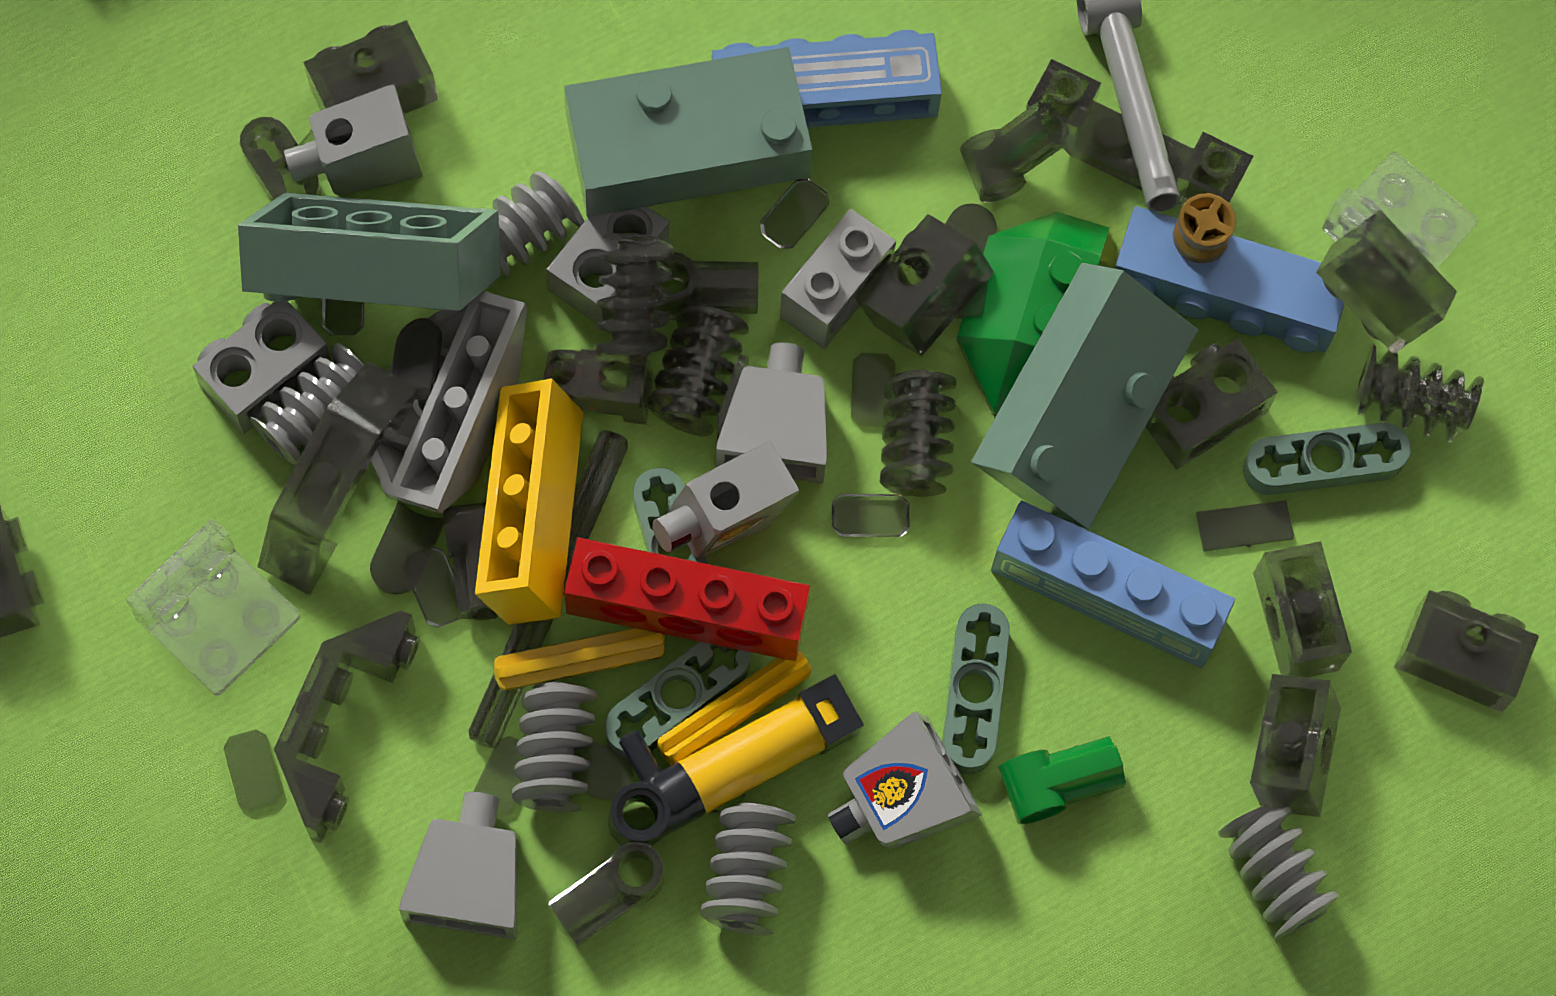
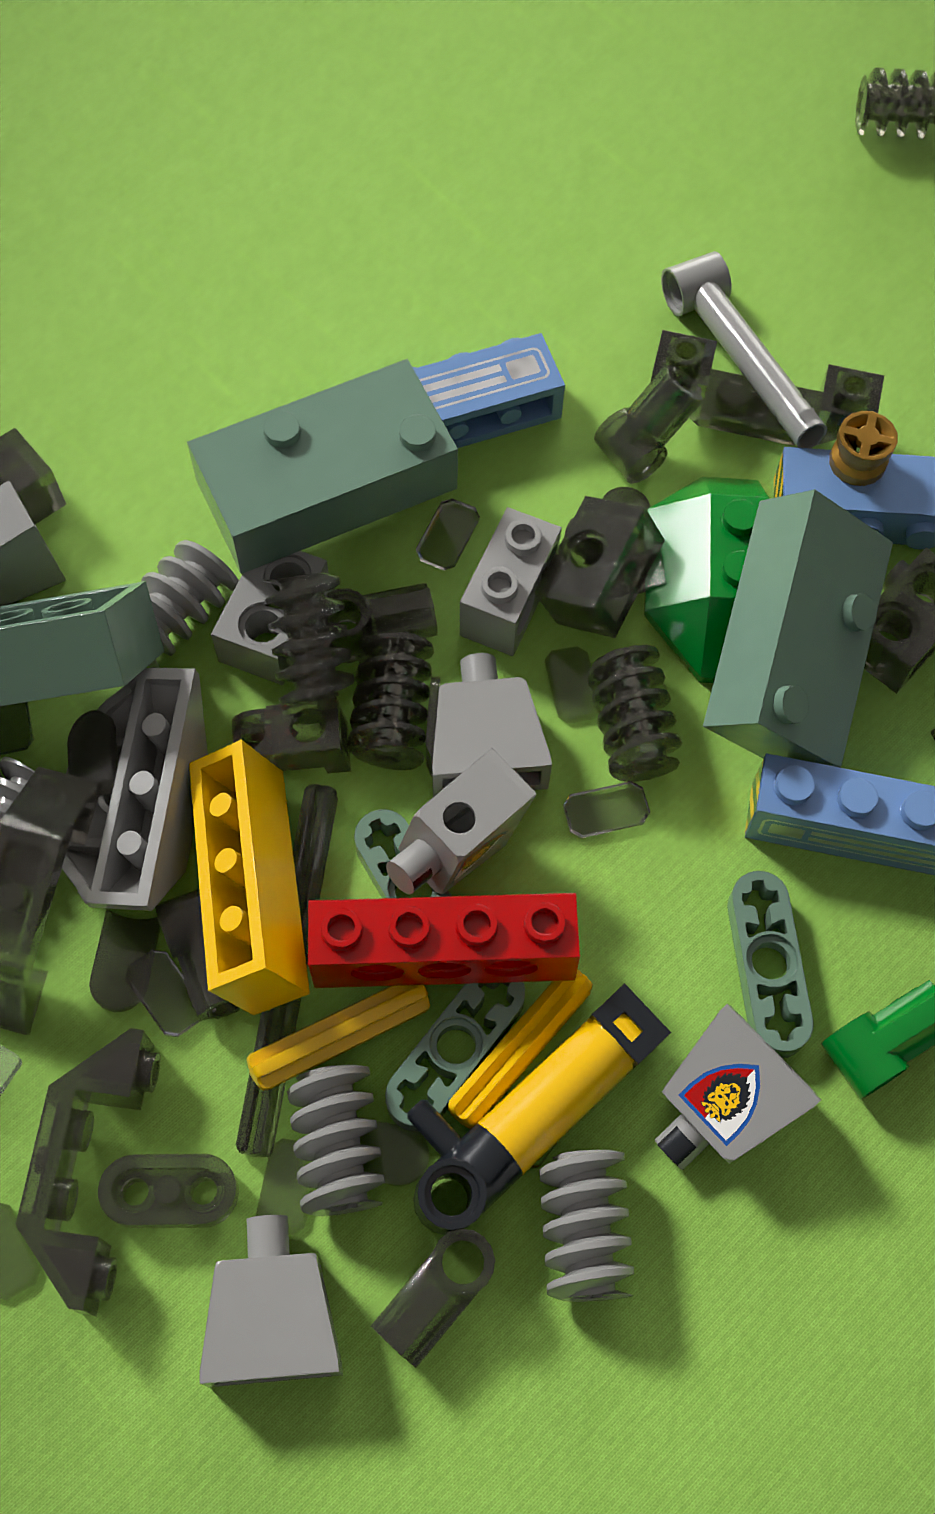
camera: 10 degrees left, 5 degrees down
(406, 752) = (171, 1190): none -> clear smoke plate

